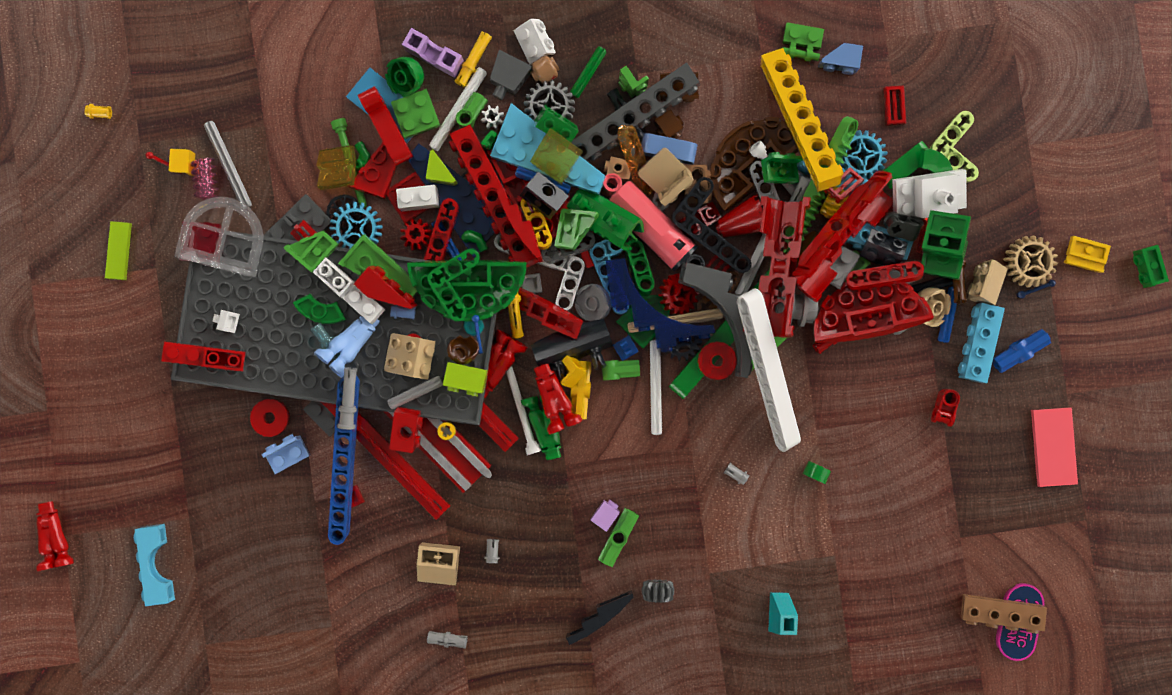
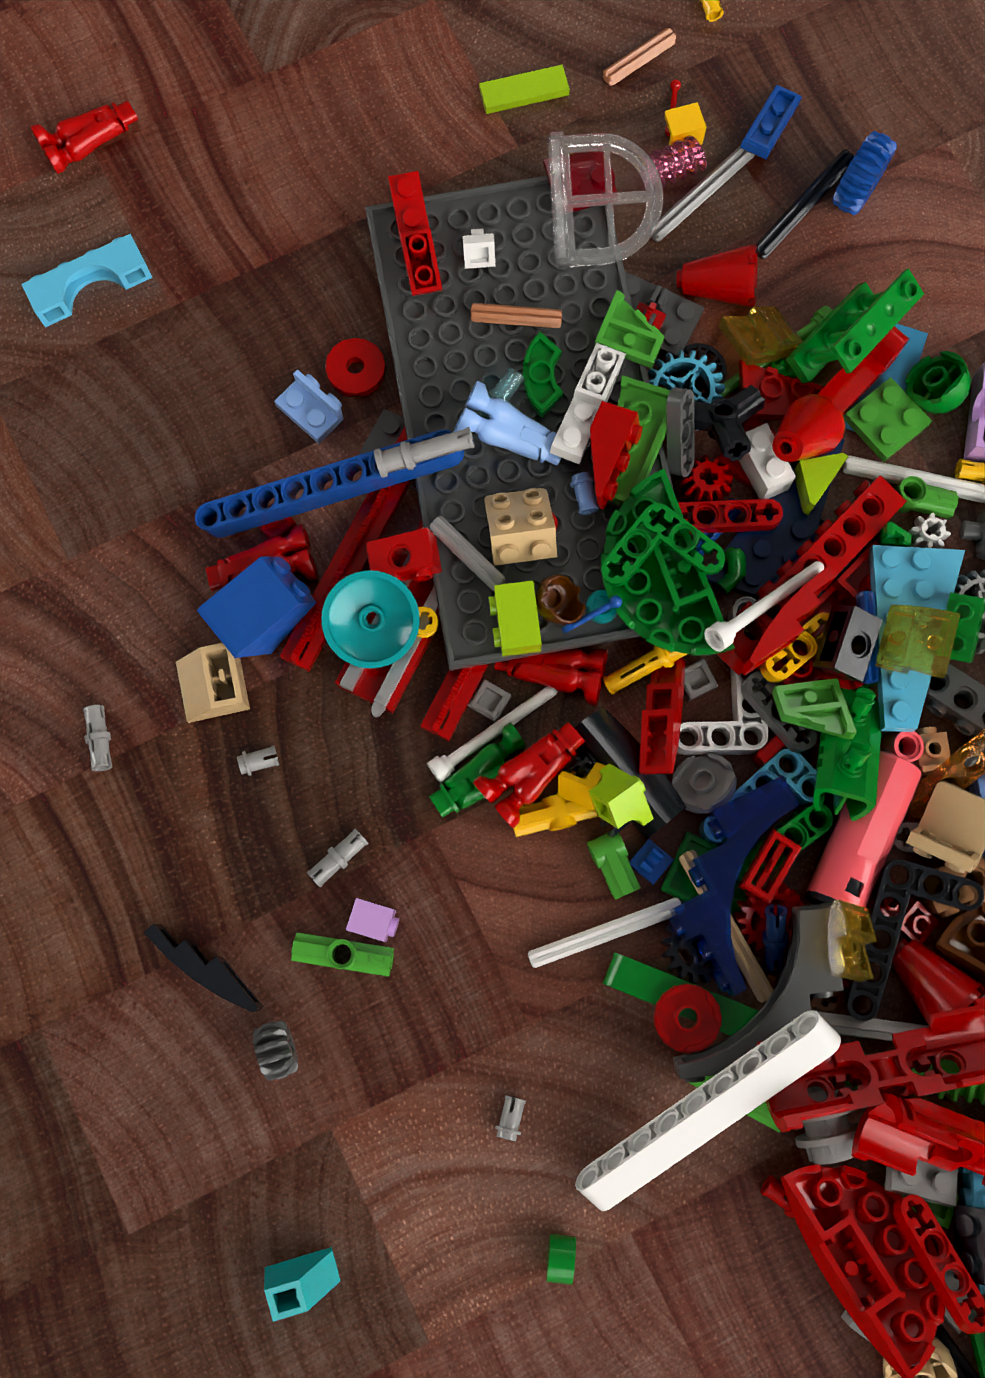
camera: 70 degrees right, 10 degrees down
(121, 170) = (639, 57): none -> axle
(197, 106) = (771, 122): none -> blue tile
(254, 65) = (864, 172): none -> blue gear
(259, 107) = (804, 204): none -> black axle
(277, 312) = (516, 315): none -> nougat axle
(291, 176) = (722, 276): none -> red cone
(354, 113) = (855, 327): none -> green fence
(375, 510) = (277, 546): none -> red piece
(385, 214) = (724, 420): none -> black piece
(385, 242) = (680, 431): none -> dark grey beam
(404, 524) = (257, 608): none -> blue slope
(409, 167) = (809, 429): none -> red cone
(447, 468) = (347, 624): none -> teal dish
(503, 406) = (489, 701): none -> light grey tile
(516, 267) = (722, 634): none -> white piece
(563, 523) = (337, 858): none -> light grey pin
(587, 356) = (620, 798): none -> lime brick
(662, 298) = (755, 890): none -> red tile
(691, 297) = (775, 937): none -> dark blue pin
(708, 262) = (847, 935): none -> clear yellow slope

